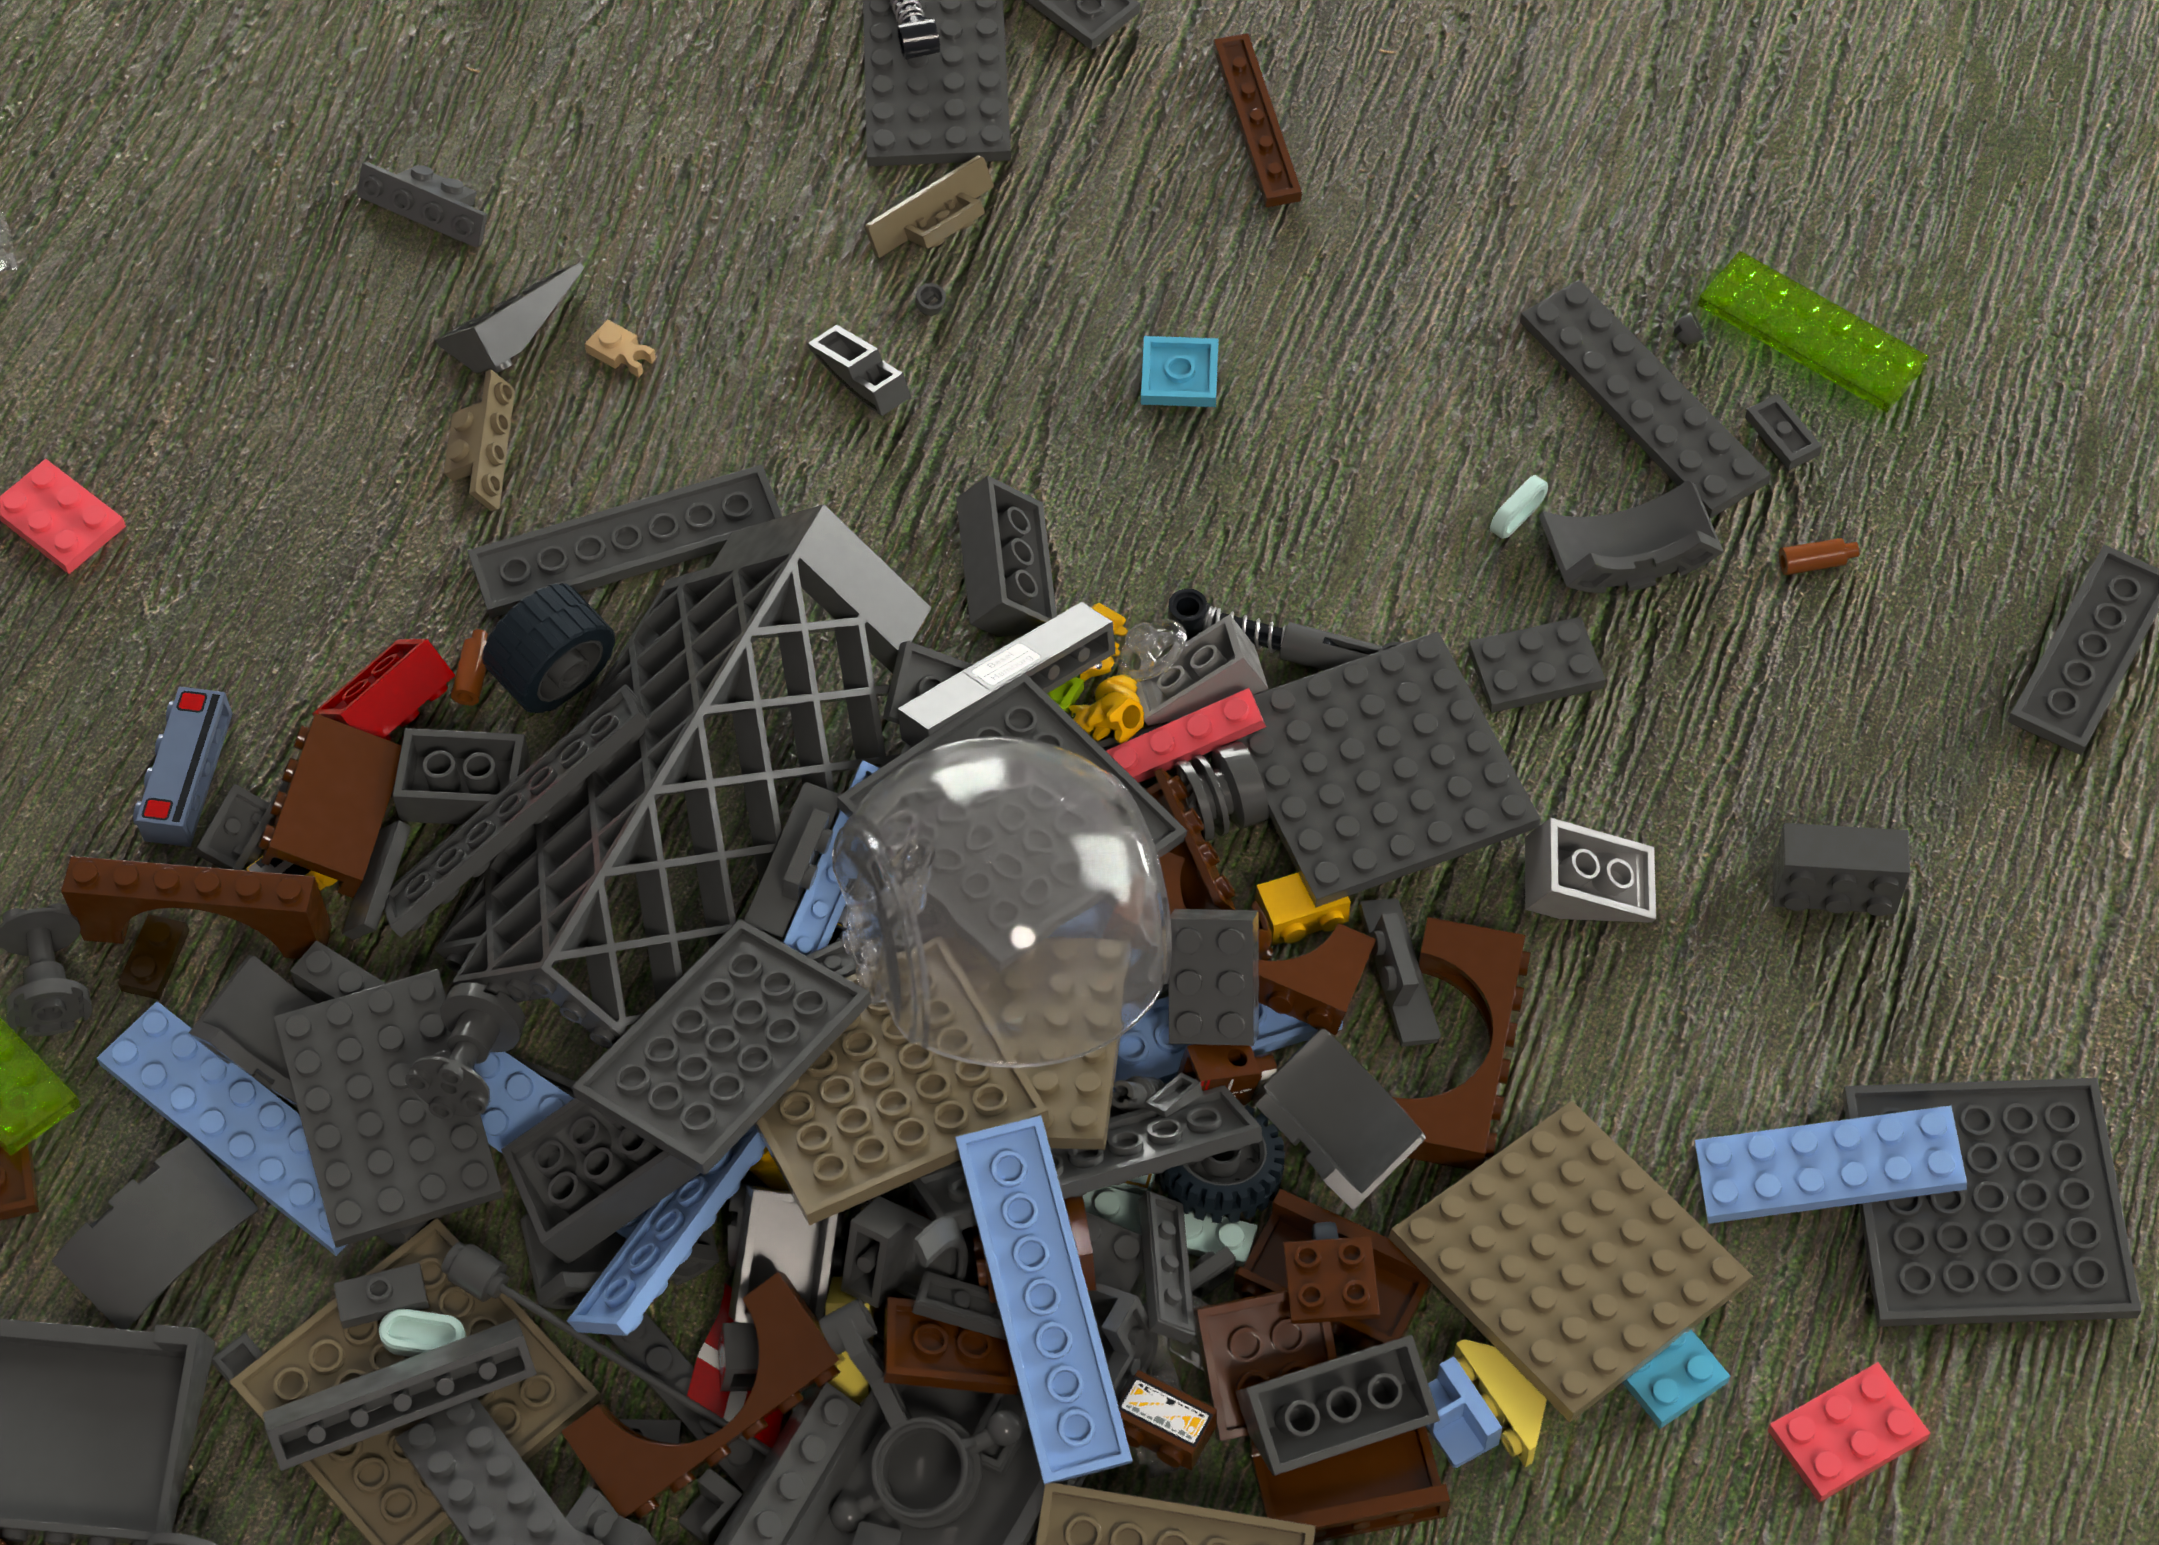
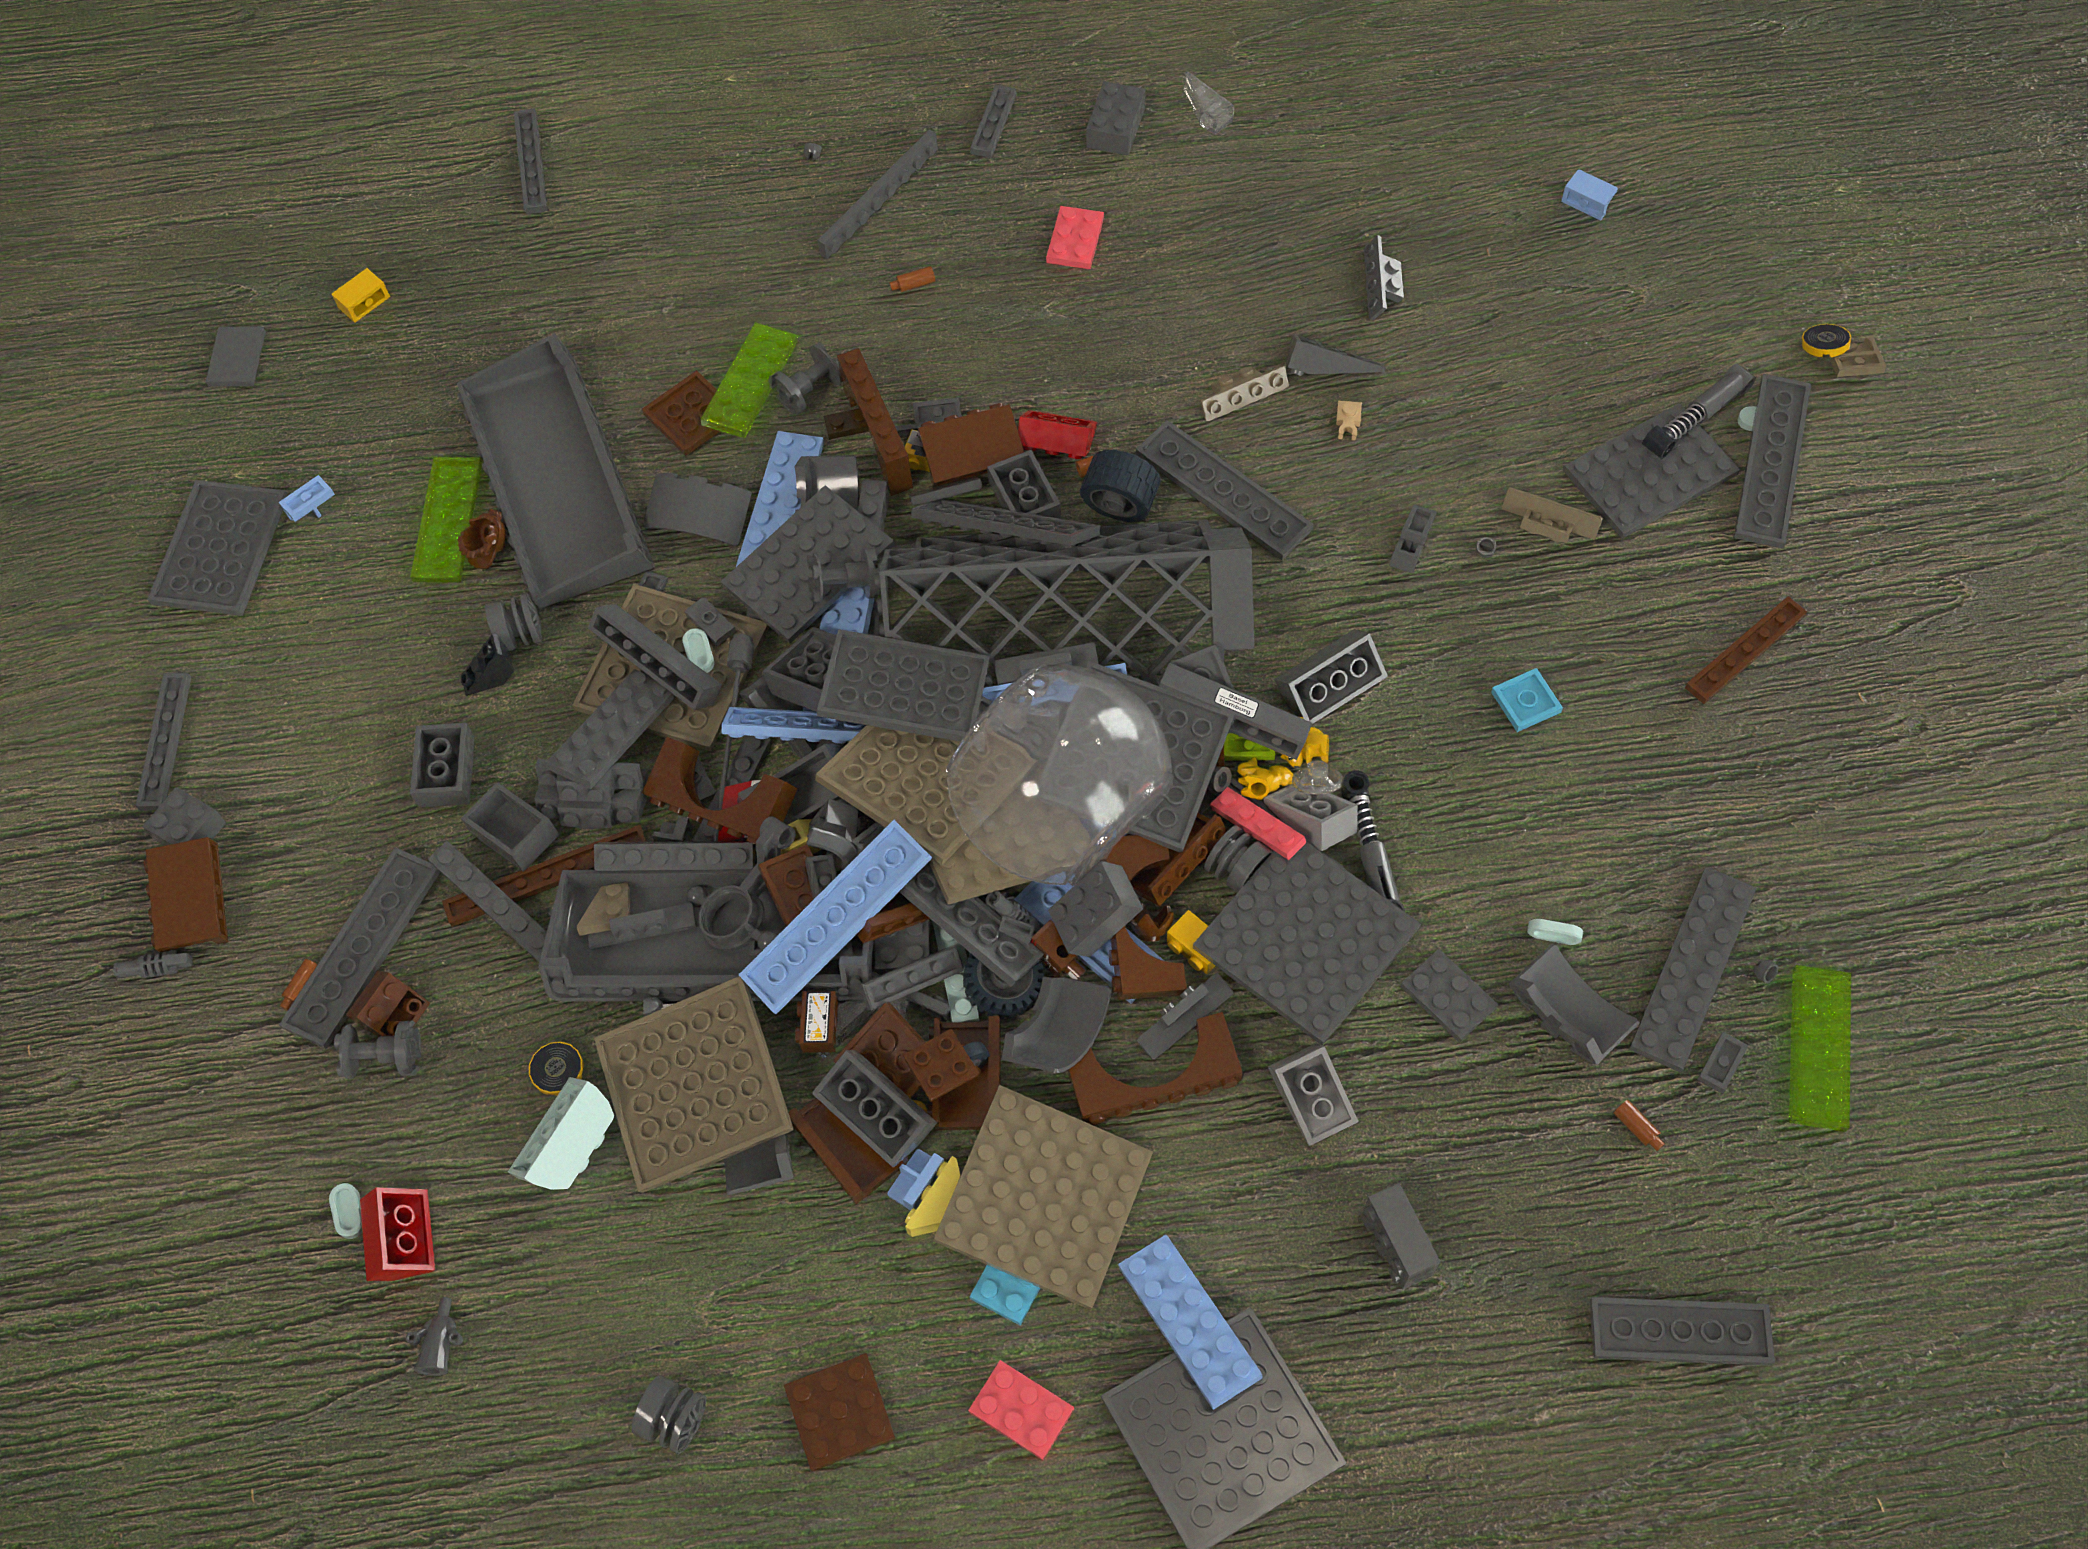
camera: 65 degrees right, 5 degrees up
(183, 766) = (960, 372): sand blue brick -> none

